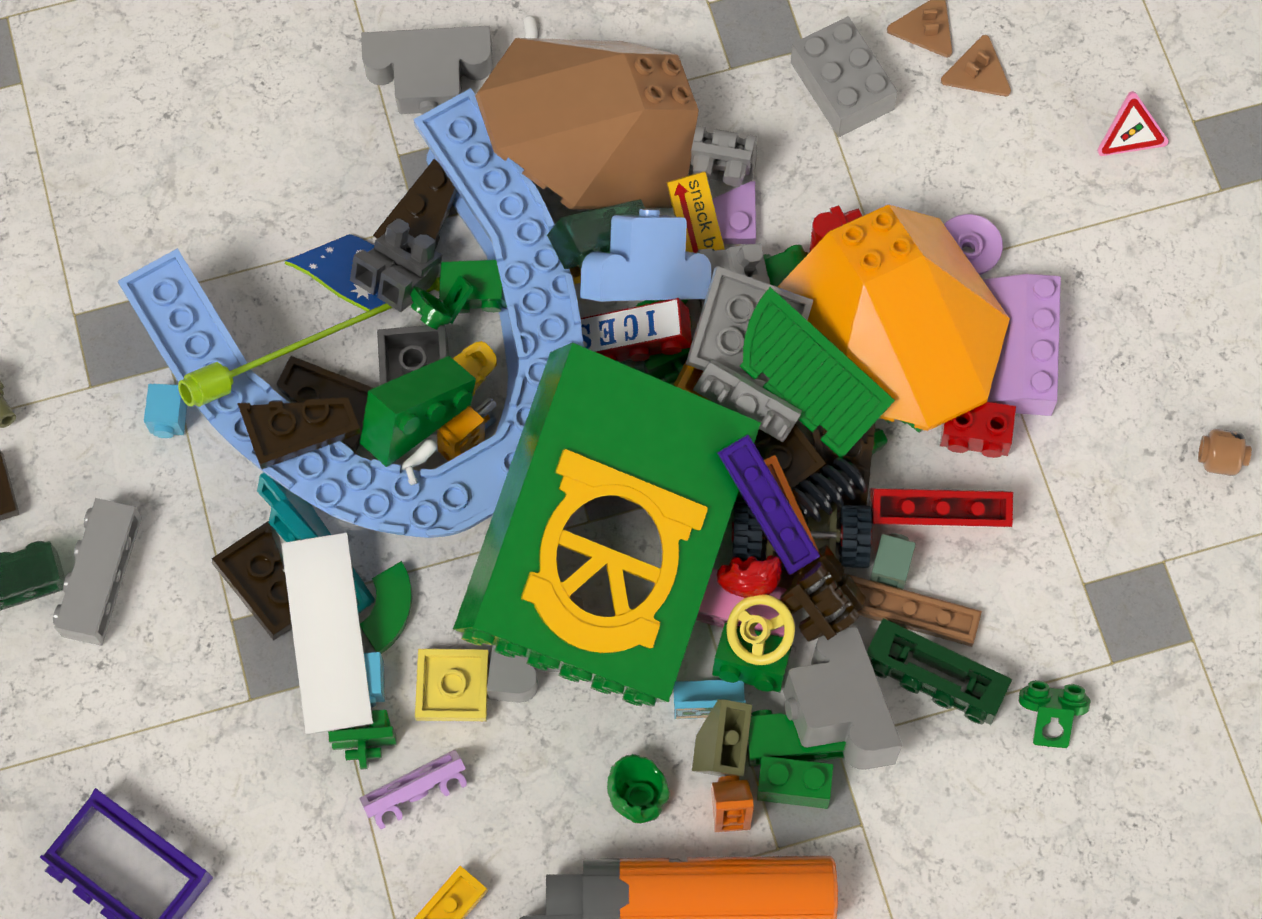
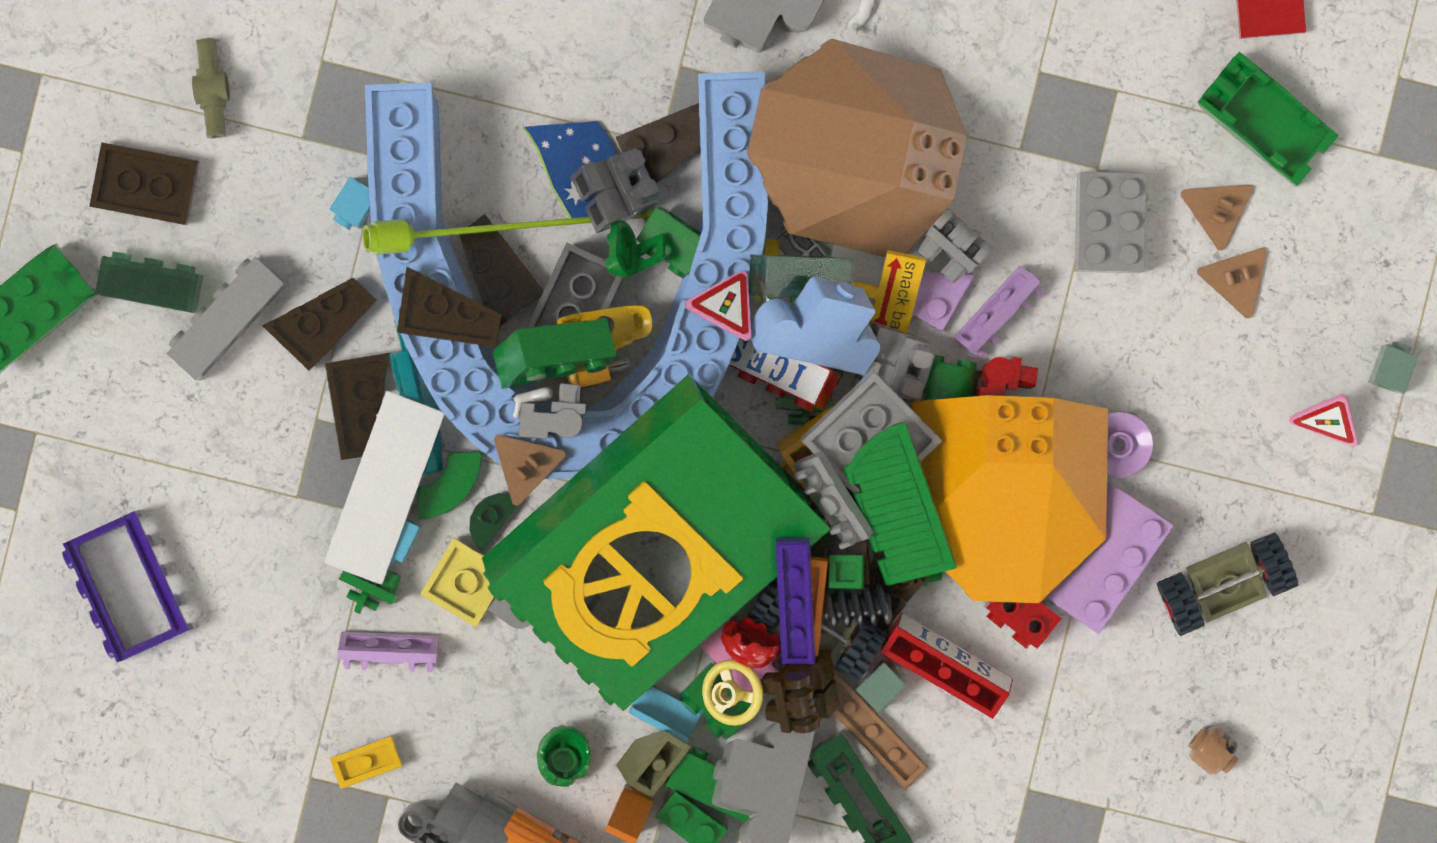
camera: 30 degrees right, 20 degrees up
(191, 528) = (321, 322): none -> dark brown wing
(442, 613) = (489, 517): none -> dark green plate
(446, 521) = (525, 465): none -> medium nougat piece
(450, 458) = (564, 421): none -> light grey hips
(548, 282) = (726, 305): none -> piece
(794, 196) = (998, 311): none -> lavender plate
(798, 460) = (846, 571): none -> green plate
(1138, 301) = (1227, 582): none -> plate
(1156, 63) = (1393, 367): none -> sand green brick

